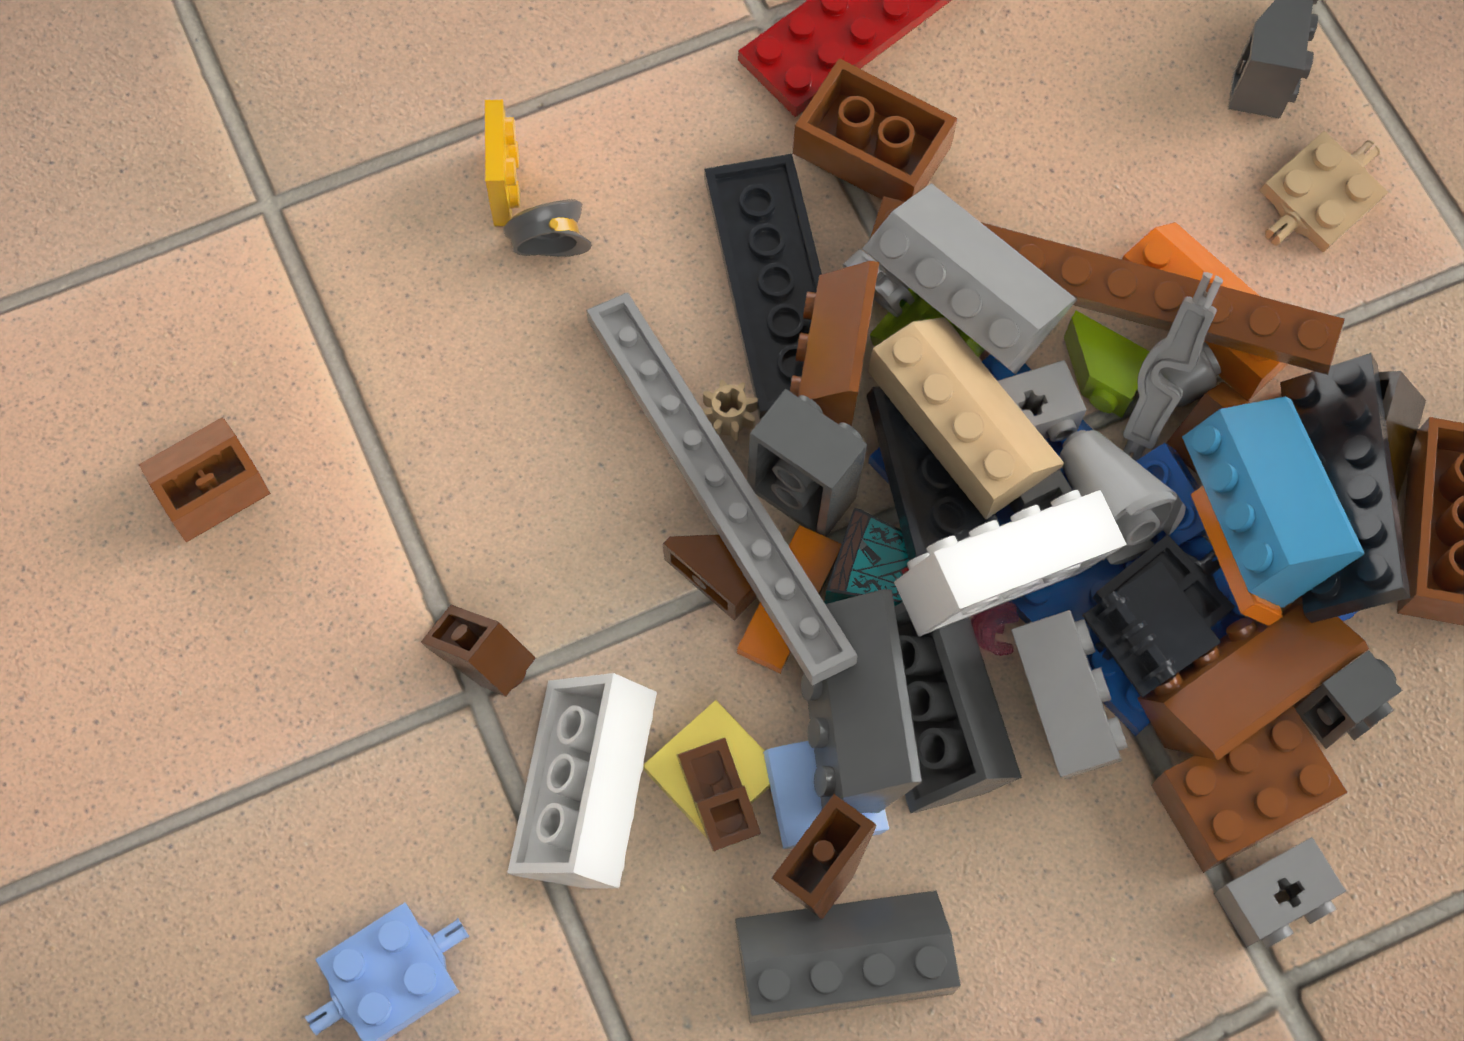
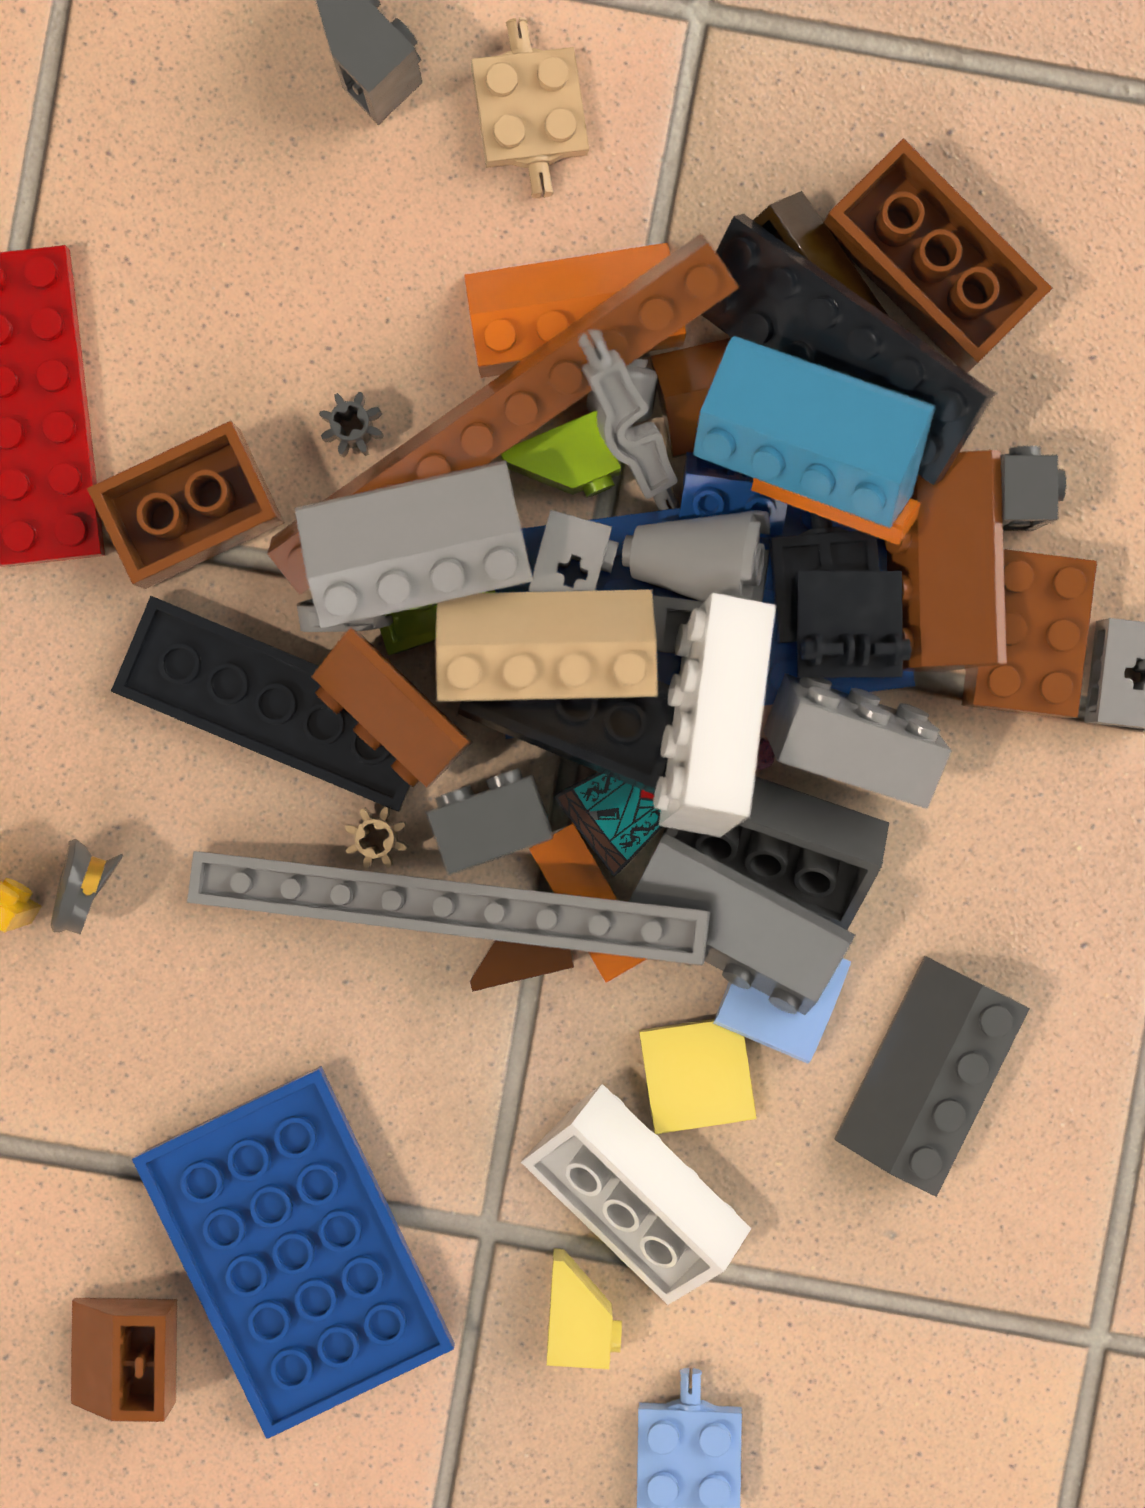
camera: 55 degrees left, 20 degrees up
(363, 554) = (294, 1252): none -> blue plate
(453, 799) = (579, 1319): none -> light yellow slope
(479, 649) = (456, 1211): reddish brown slope -> none
(718, 794) = (727, 1090): reddish brown slope -> none
(825, 857) = (851, 1050): reddish brown slope -> none
(1013, 207) = (345, 411): none -> dark grey gear

